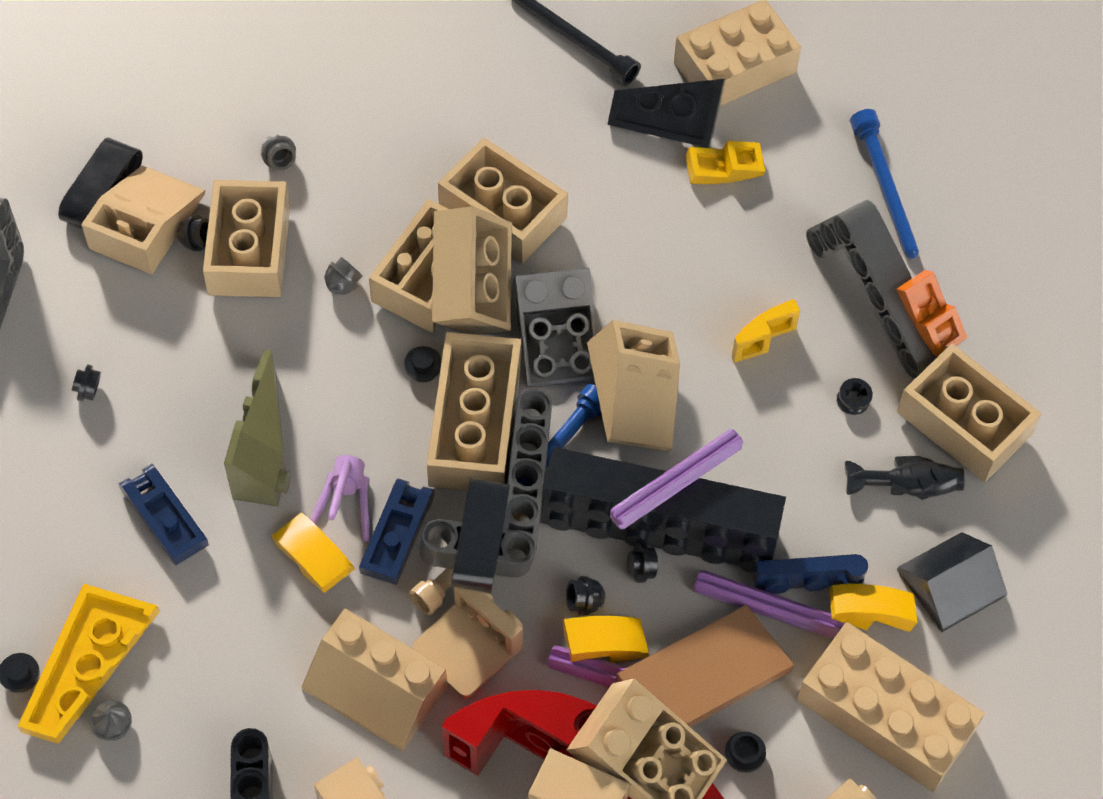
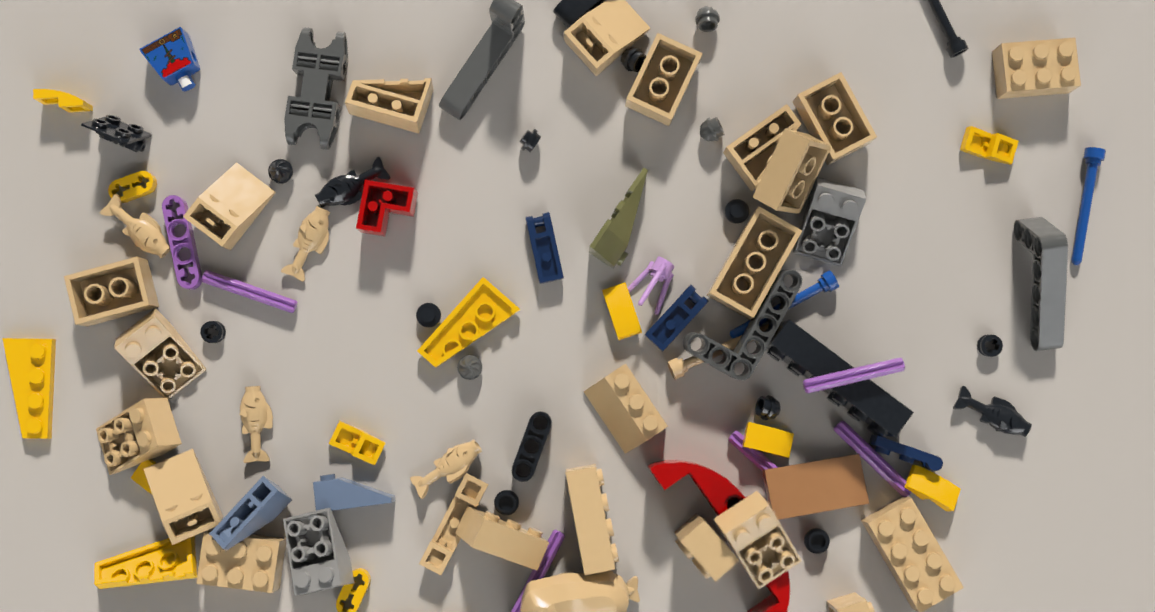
camera: 25 degrees right, 25 degrees up
(472, 640) = (689, 407): tan bracket -> none
(480, 535) = (721, 358): black beam -> none
(636, 383) = (859, 287): tan slope -> none
(642, 563) = (810, 402): black plate -> none
(670, 111) = (971, 95): black wing -> none
(757, 334) = (952, 281): yellow slope -> none
(932, 317) = (1065, 326): orange slope -> none
(955, 579) = (989, 488): slope -> none
(968, 412) = (1054, 392): tan brick -> none

